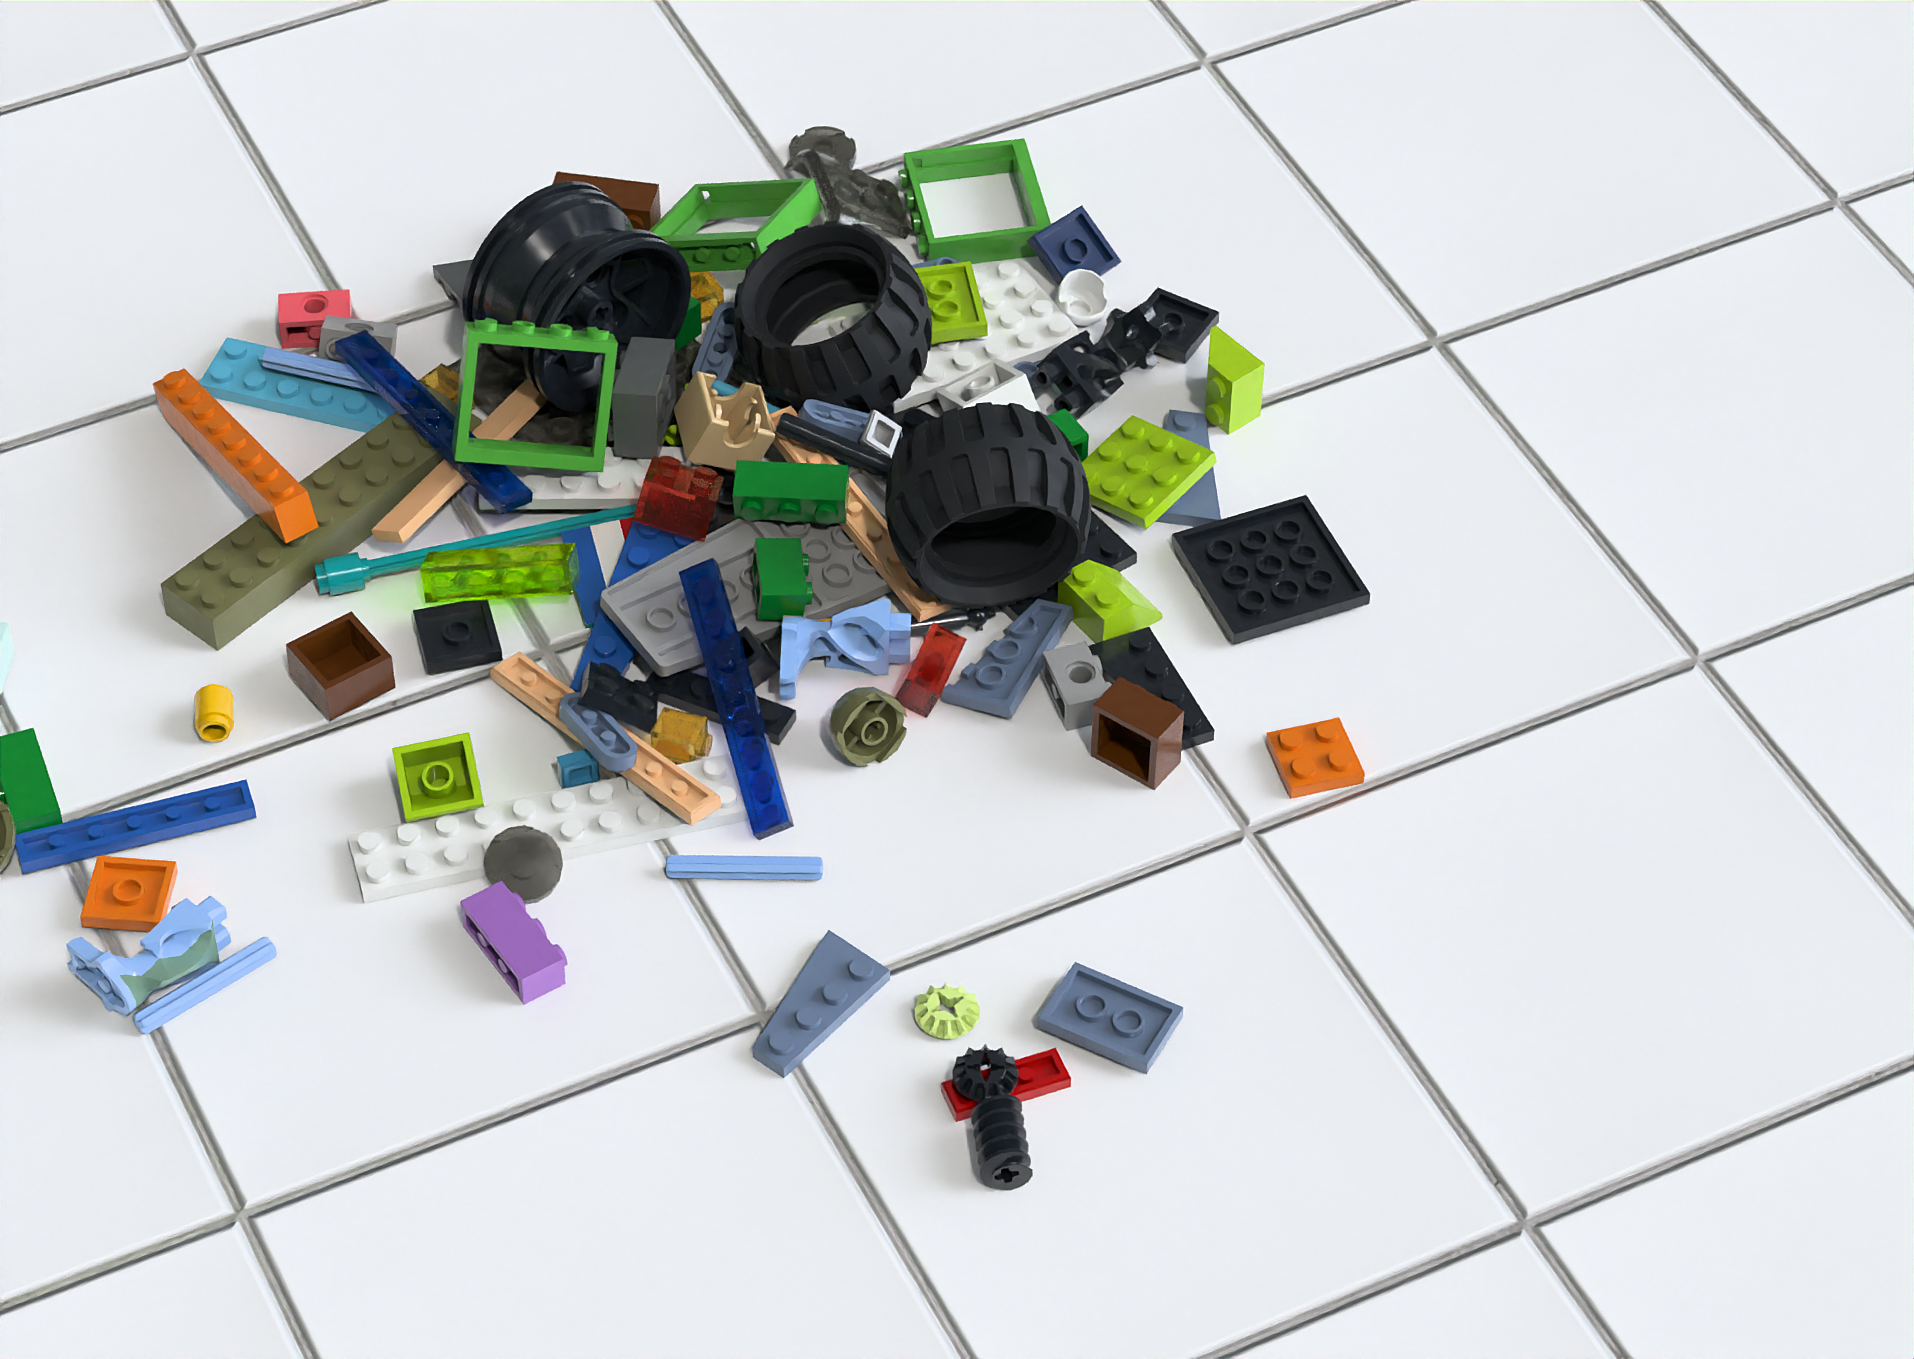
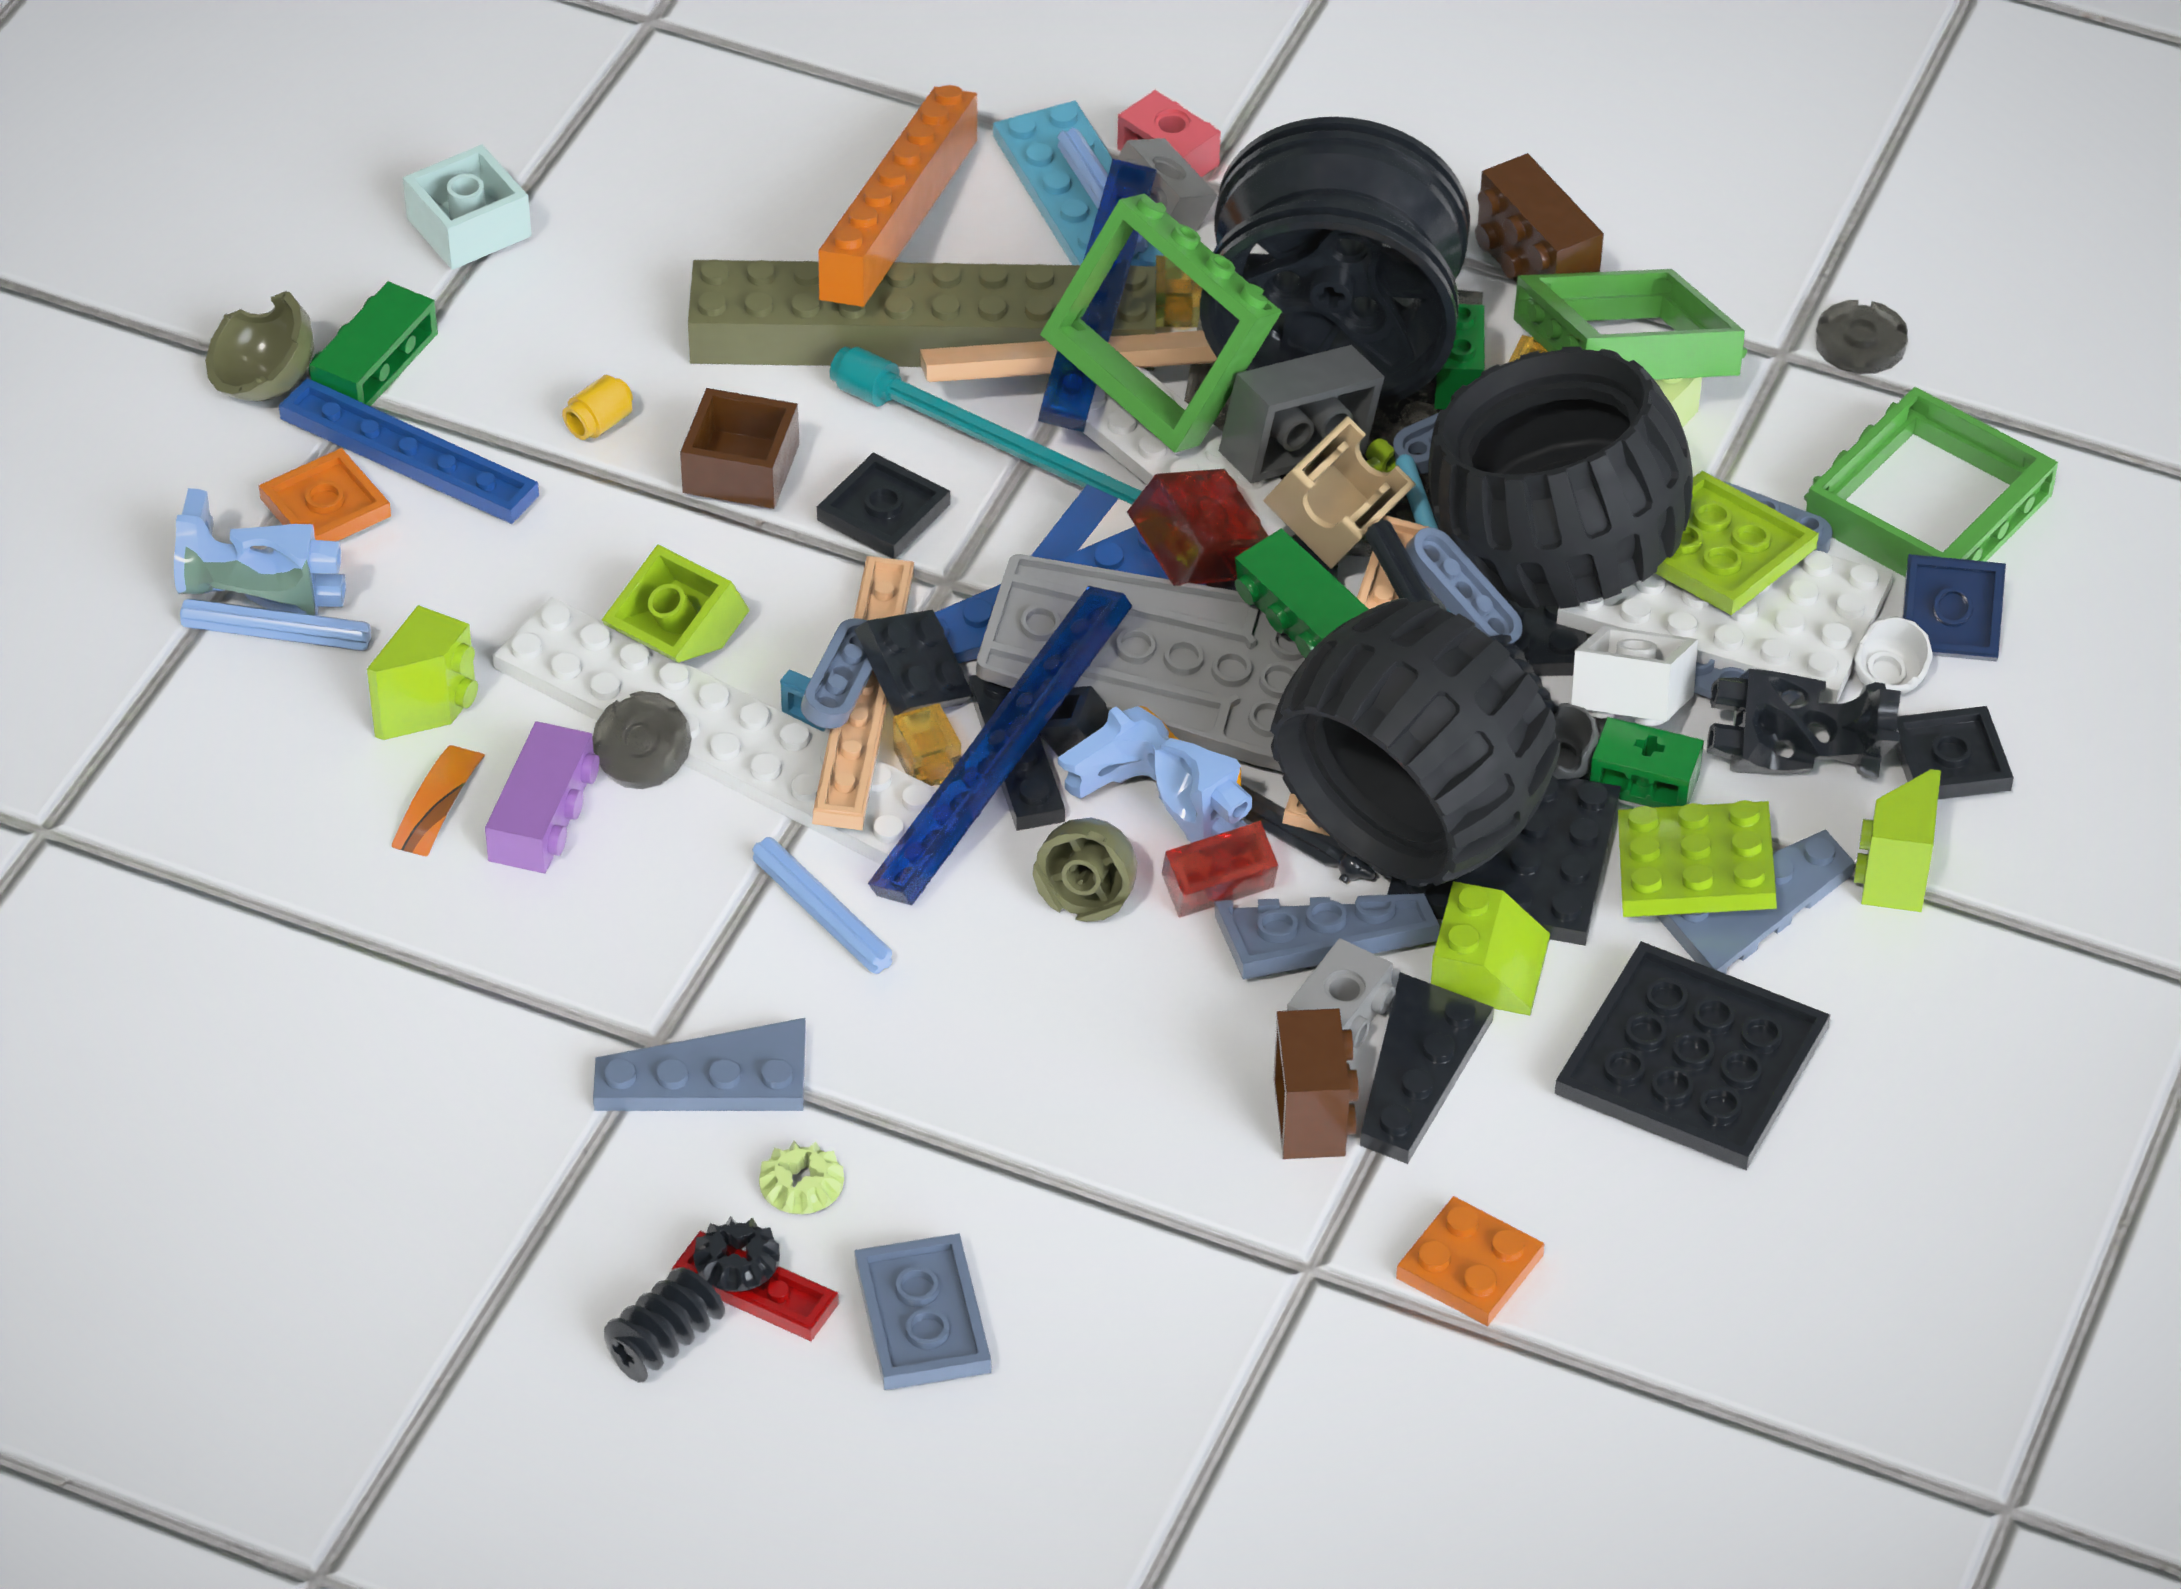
camera: 50 degrees right, 0 degrees up
(357, 928) = (422, 675): none -> lime slope
(447, 997) = (435, 800): none -> orange sticker
(500, 572) = (980, 476): clear neon green brick -> none
(780, 578) = (1185, 670): green brick -> none
(852, 194) = (1795, 387): clear smoke piece -> none
(880, 433) = (1477, 608): light grey slope -> none

